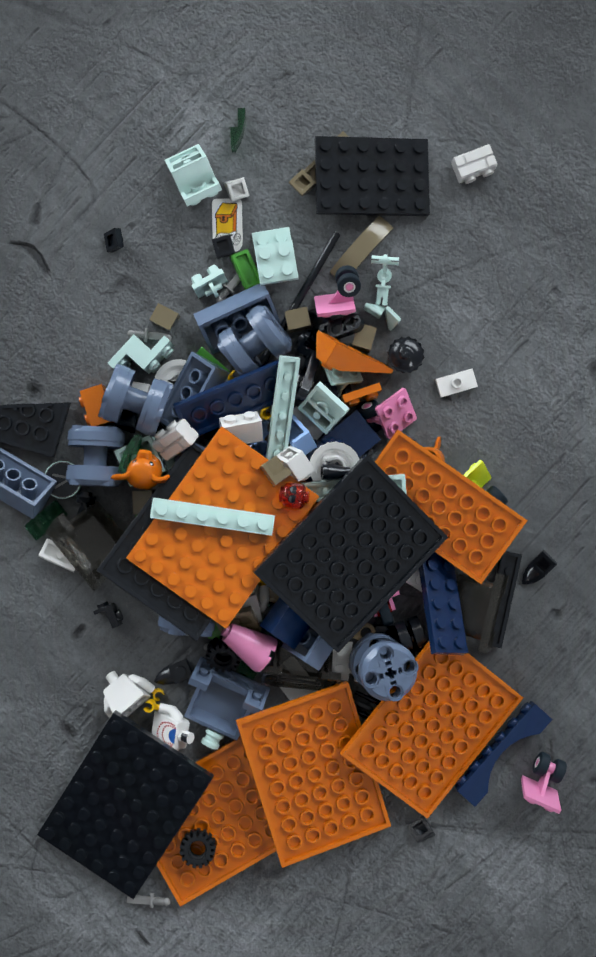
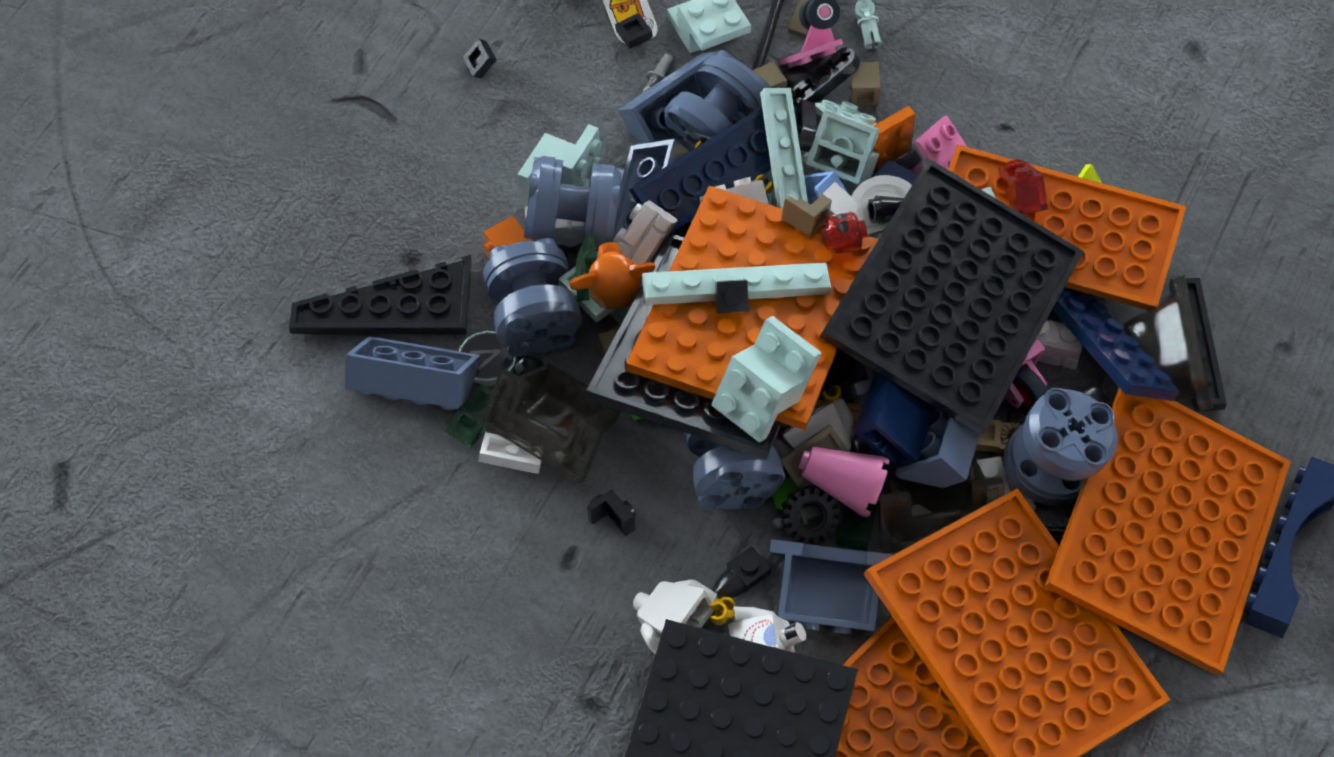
camera: 15 degrees left, 30 degrees down
(164, 317) = (575, 121): dark tan panel -> none
(204, 530) = (731, 296): none -> black plate
(205, 604) = (766, 378): none -> light aqua bracket
(209, 284) = (628, 74): light aqua hips -> none
(212, 739) = (833, 645): light aqua wheel -> none
(245, 268) = (670, 48): bright green tile -> none
(345, 358) = (847, 89): orange wedge -> none
(375, 310) = (866, 50): light aqua slope -> none
(391, 318) = (893, 54): light aqua slope -> none
(405, 354) = (930, 87): black piece -> none
(421, 829) = (1222, 696): black slope -> none
(426, 480) = (1023, 187): none -> clear red slope
(456, 383) = (1013, 107): white plate -> none
(538, 568) = (1231, 291): black plate -> none

